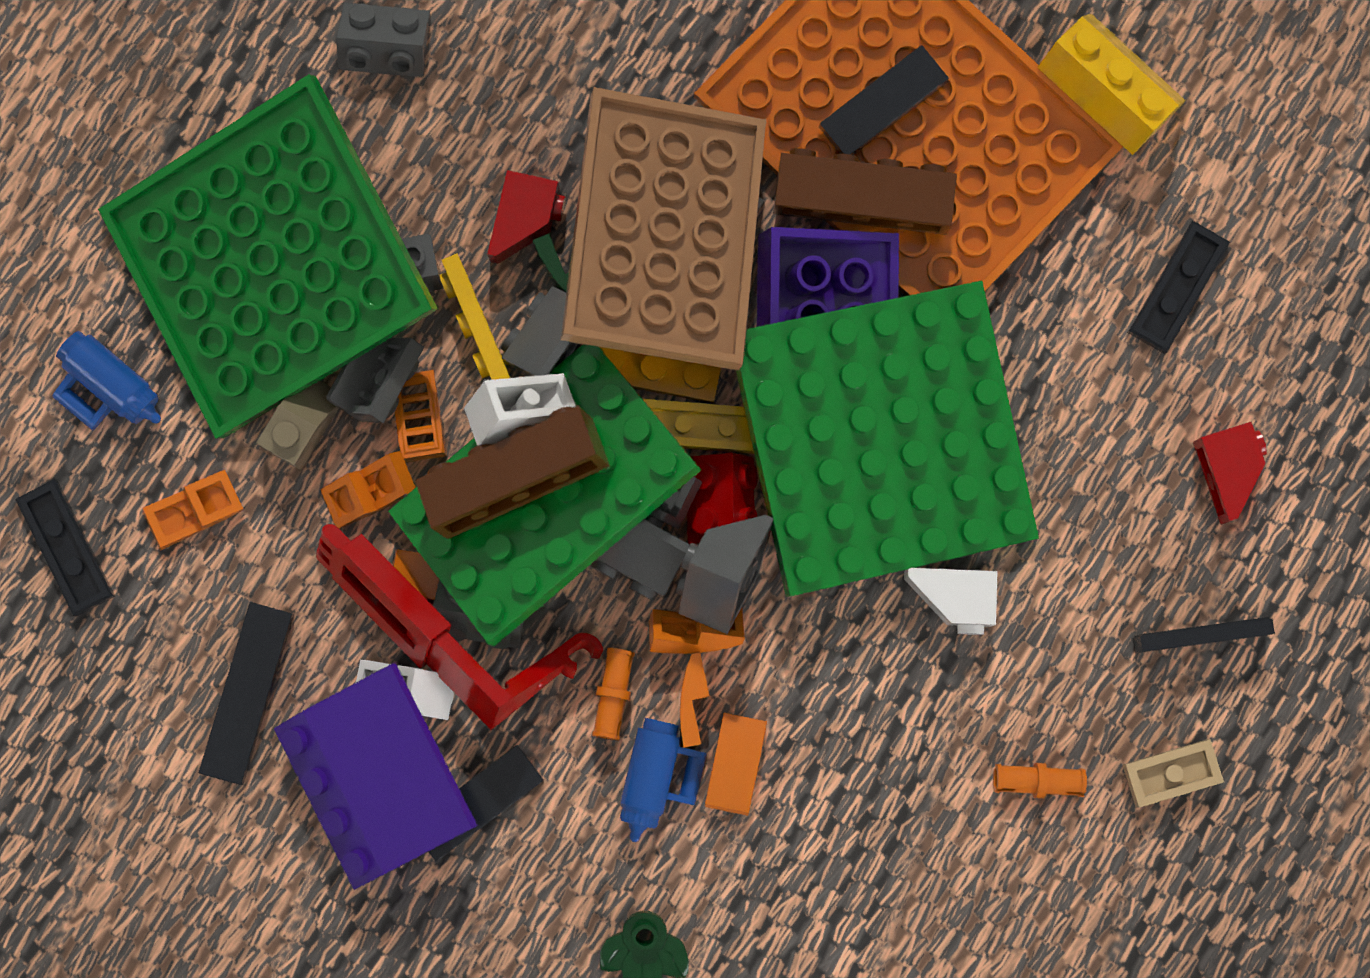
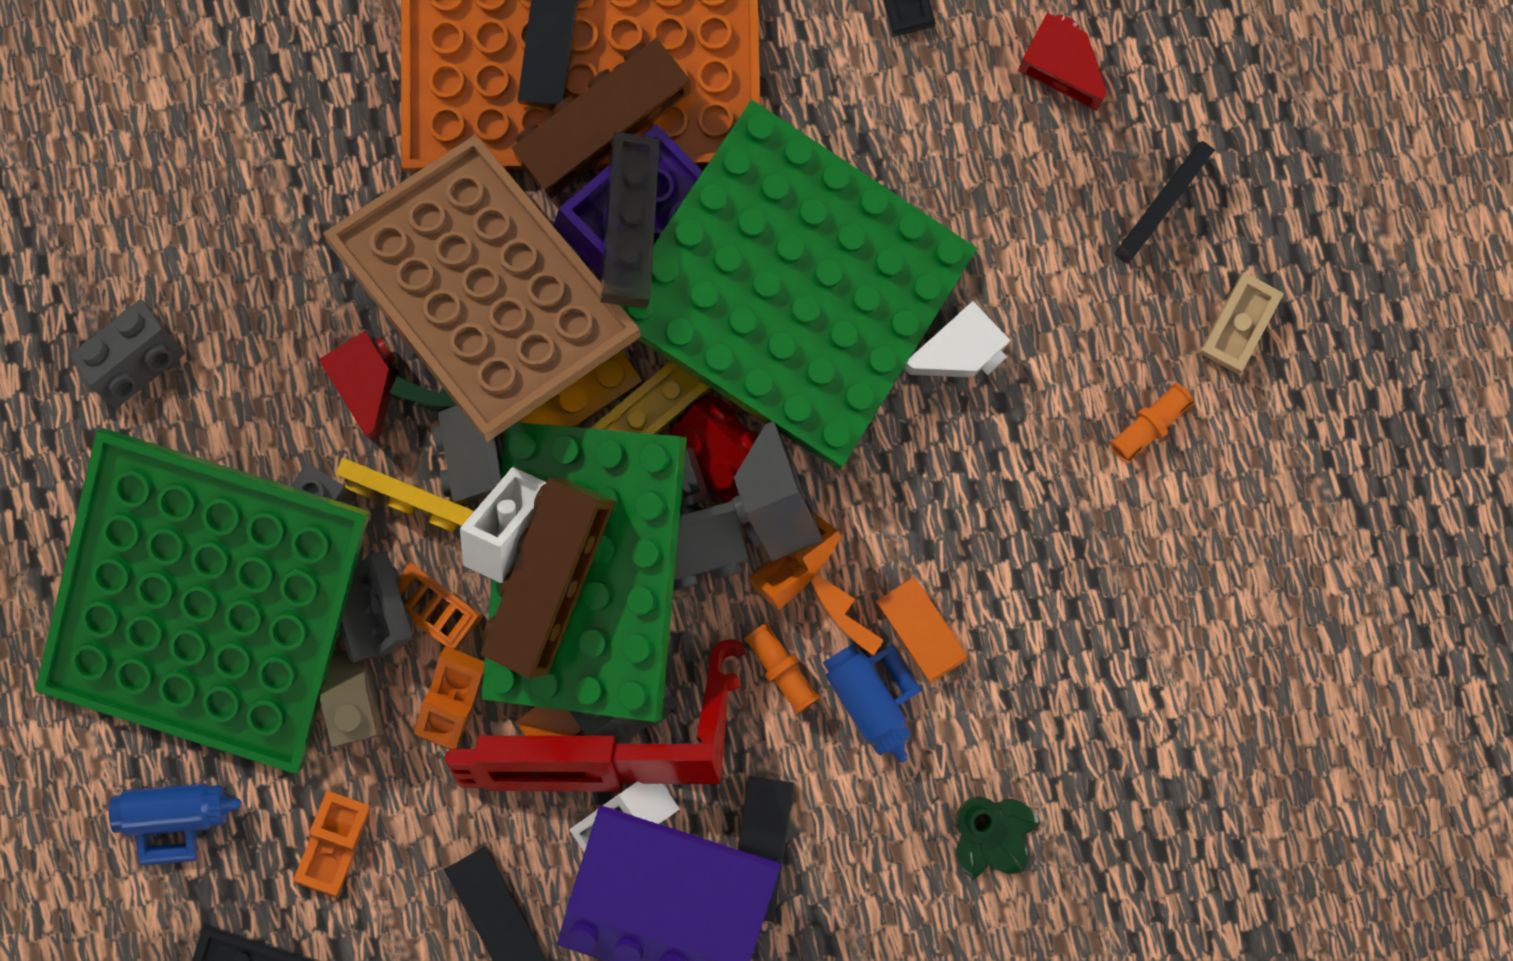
camera: 40 degrees left, 0 degrees up
(811, 283) = (630, 220): none -> clear smoke plate

